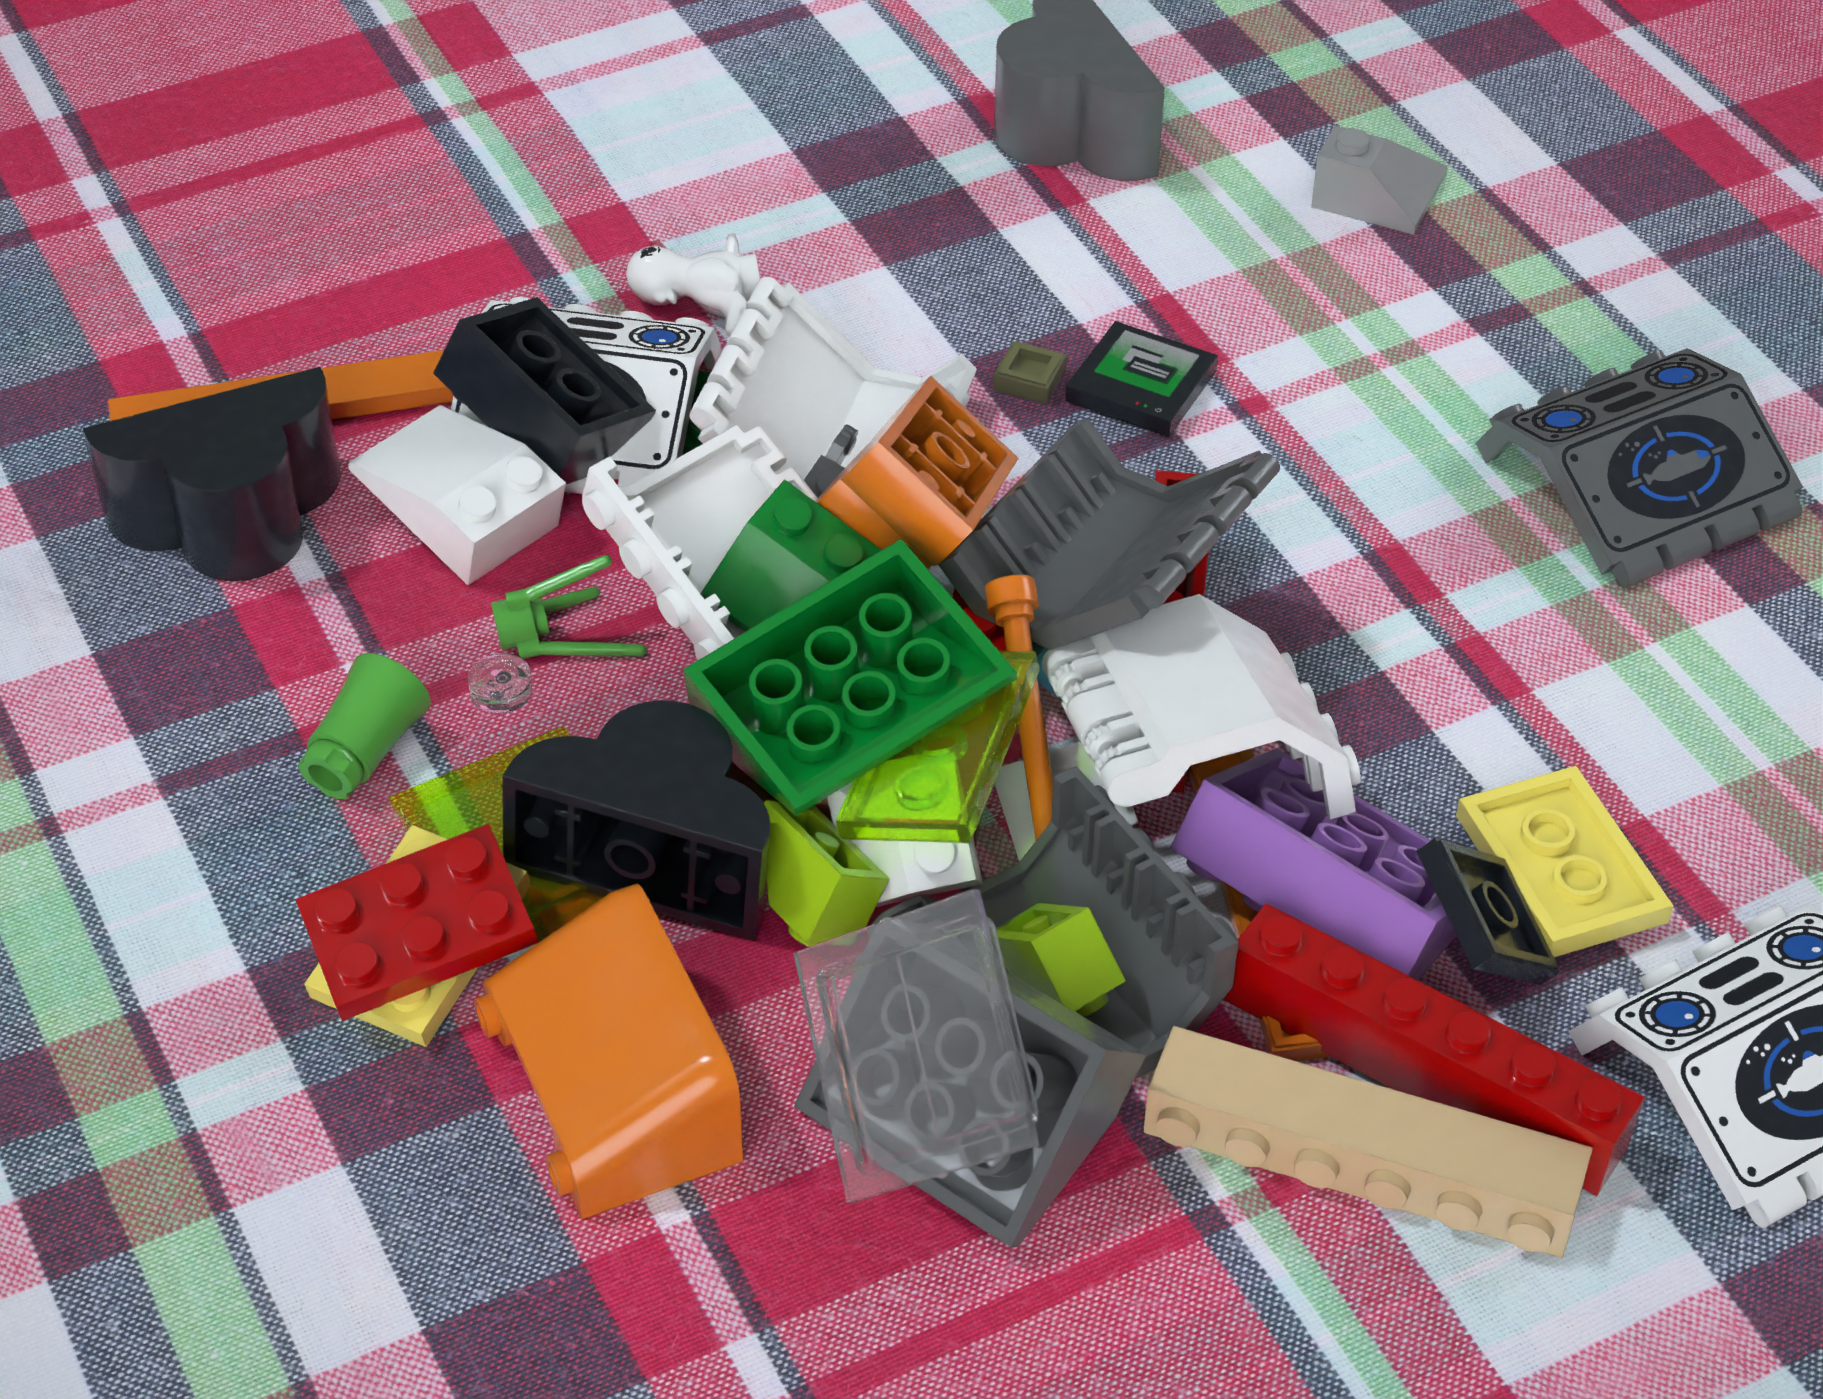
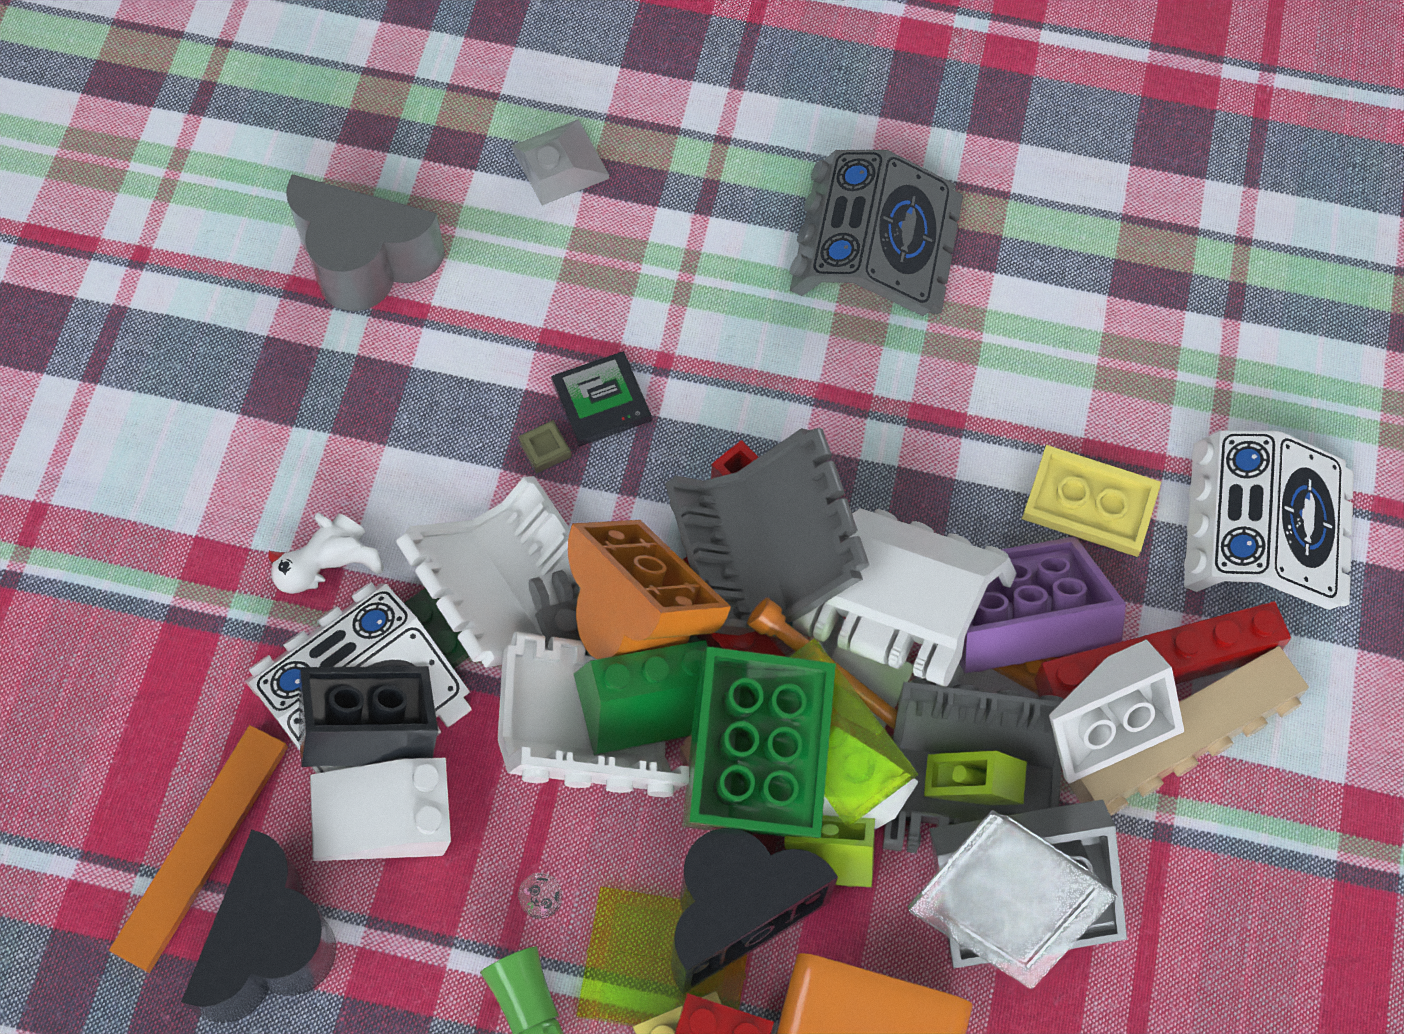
camera: 50 degrees left, 20 degrees up
(523, 617) = (508, 849): bright green plant -> none
(1268, 987) = (1117, 712): none -> white slope
(1488, 912) = (1114, 567): black tile -> none

